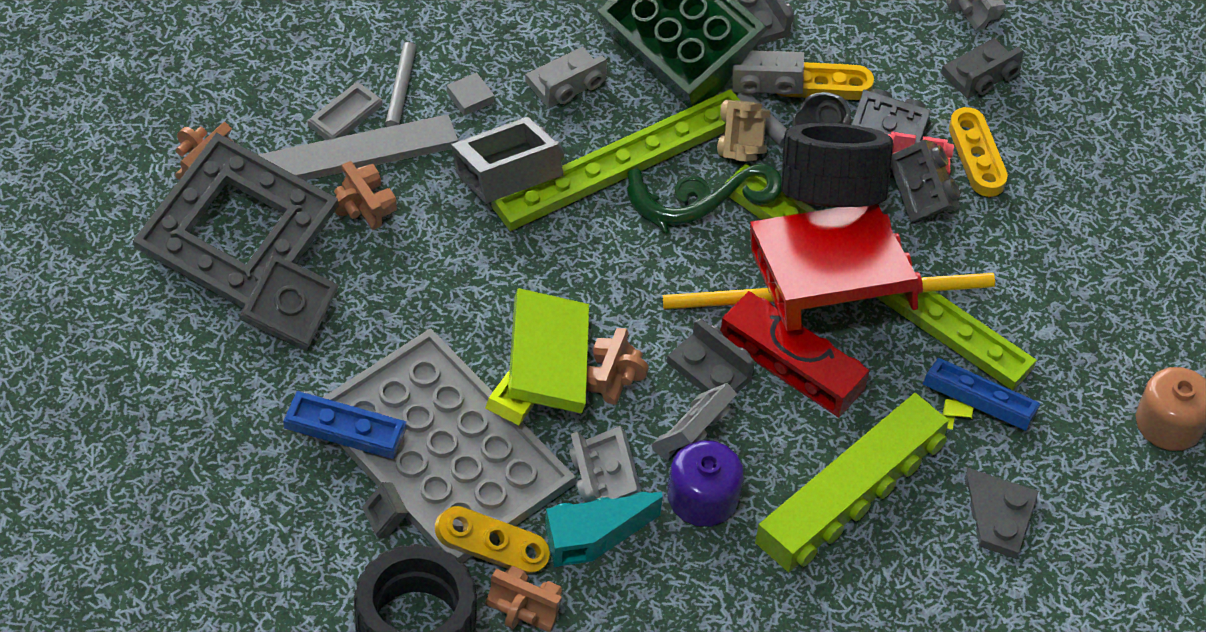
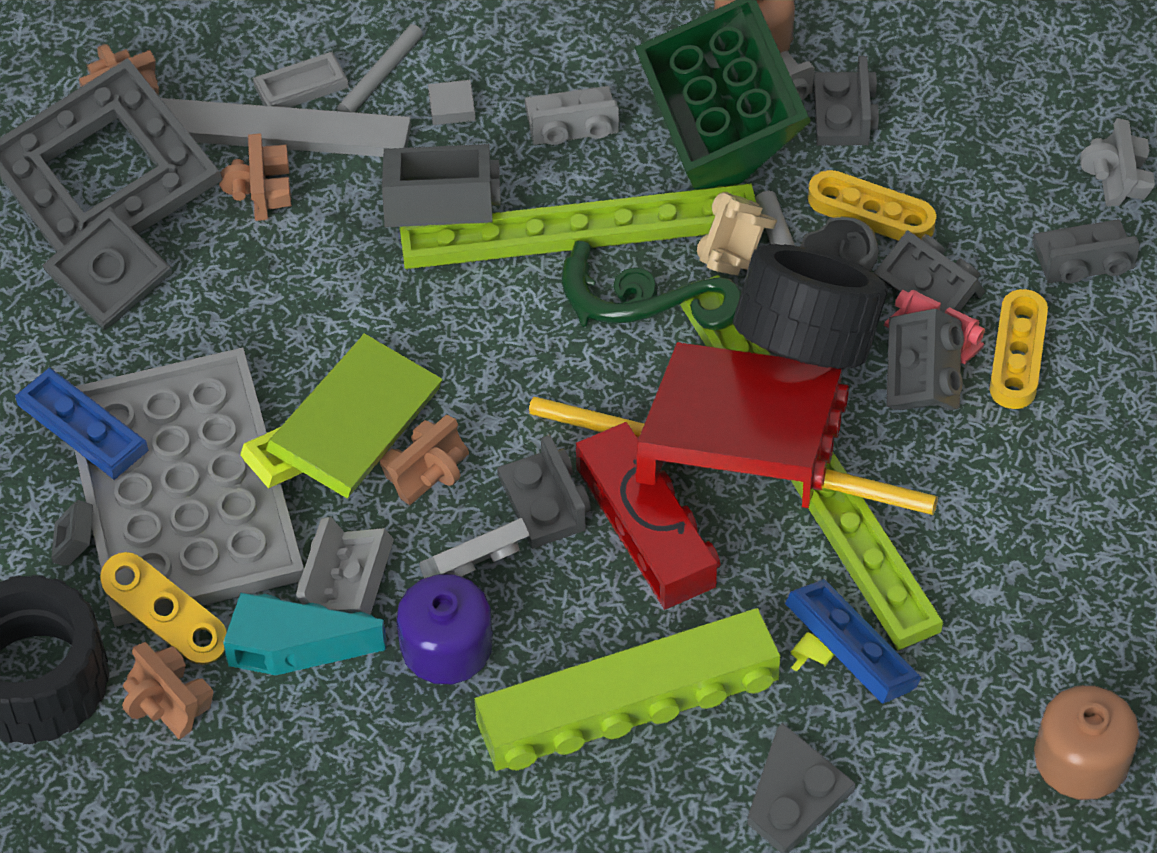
camera: 30 degrees right, 0 degrees up
(770, 73) = (805, 177): light grey bracket -> none

